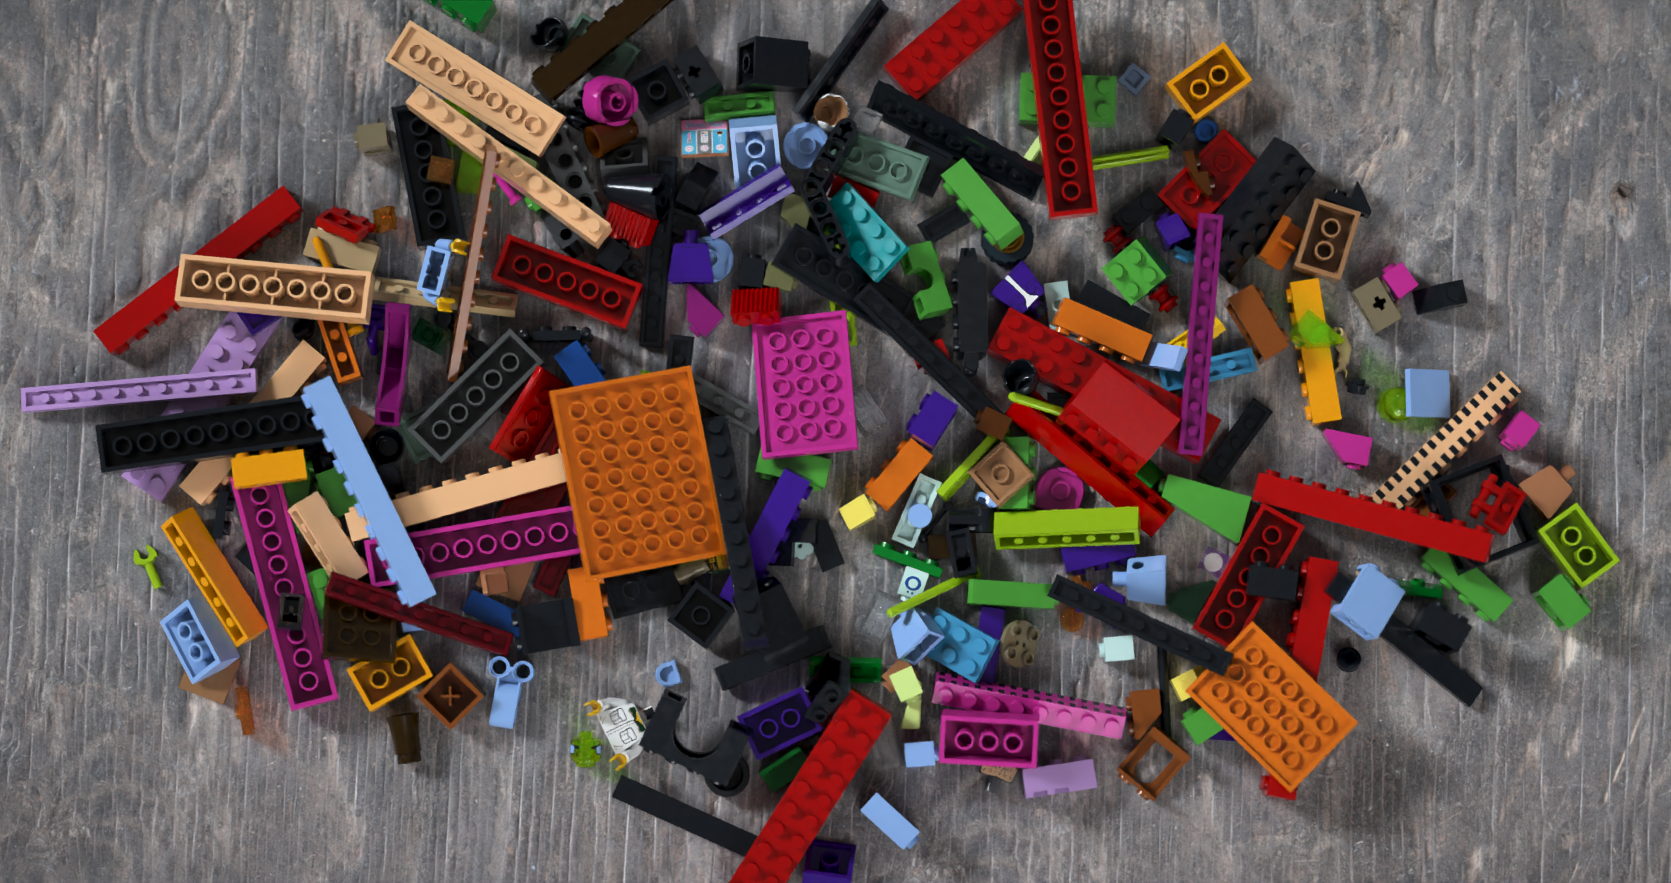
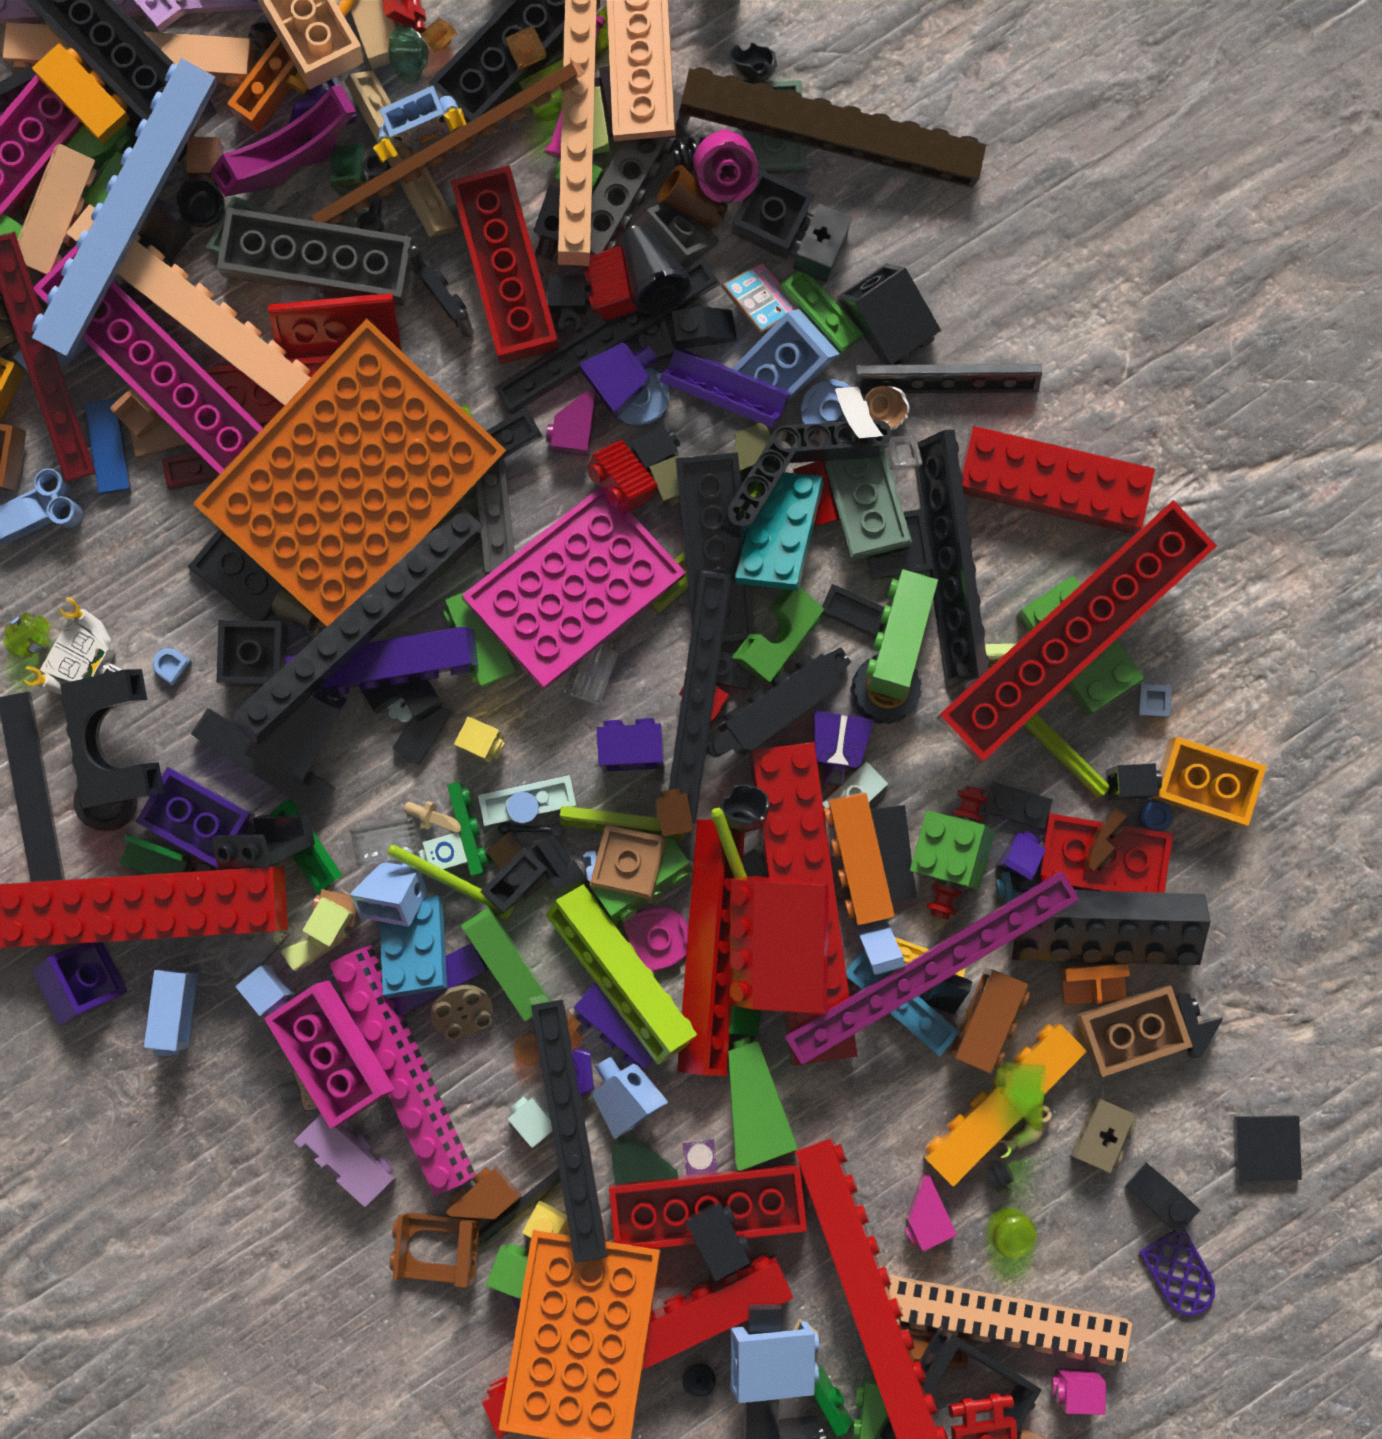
camera: 50 degrees right, 0 degrees up
(386, 245) = (408, 53): none -> clear green piece
(546, 626) = (127, 500): black panel -> none
(578, 365) = (427, 340): blue brick -> none
(589, 606) = (178, 534): orange brick -> none
(824, 132) = (856, 412): none -> white sticker
(881, 578) = (429, 816): none -> tan piece
(898, 474) = (551, 753): orange brick -> none
(1223, 336) = (949, 993): none -> black tile
(1235, 443) = (844, 1088): black tile -> none
(1398, 280) = (1148, 1139): dark pink brick -> none
(1427, 393) = (1048, 1259): light blue tile -> none
(1456, 211) = (1267, 1148): none -> black tile
(1492, 311) = (1154, 1271): none -> dark purple window

